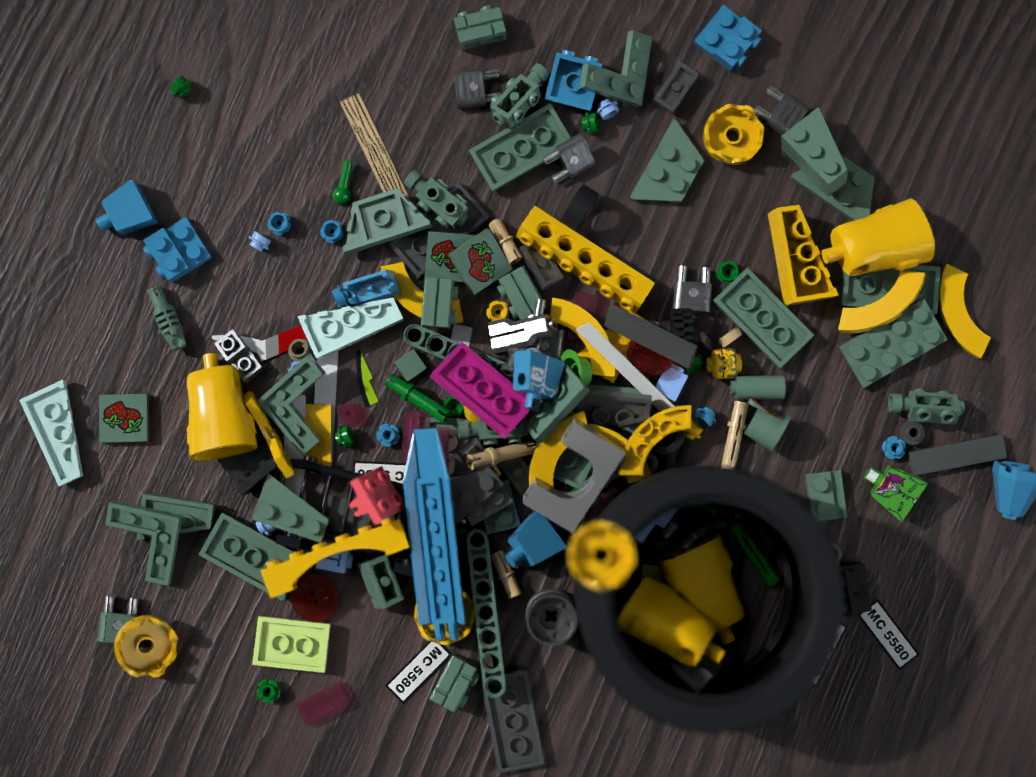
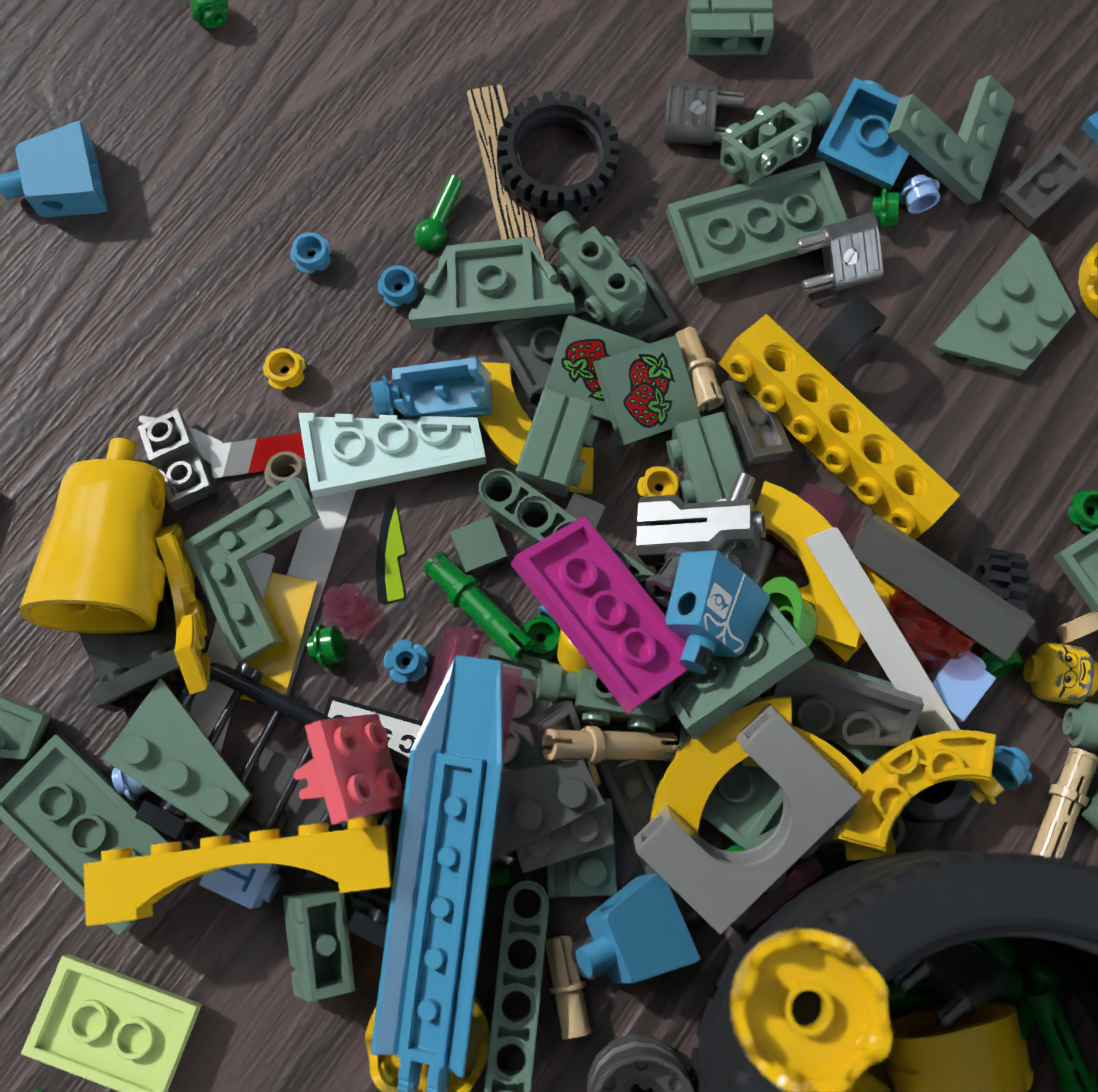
camera: 10 degrees right, 10 degrees down
(167, 319) = (68, 368): sand green hinge -> none
(176, 250) = (121, 258): dark azure plate -> none
(259, 241) = (268, 274): light blue plate -> none
(282, 299) = (284, 358): none -> yellow plate
(325, 593) = (161, 946): clear red plate -> none
(394, 106) = (563, 114): none -> black tyre
(693, 294) = (1021, 530): flat silver piece -> none

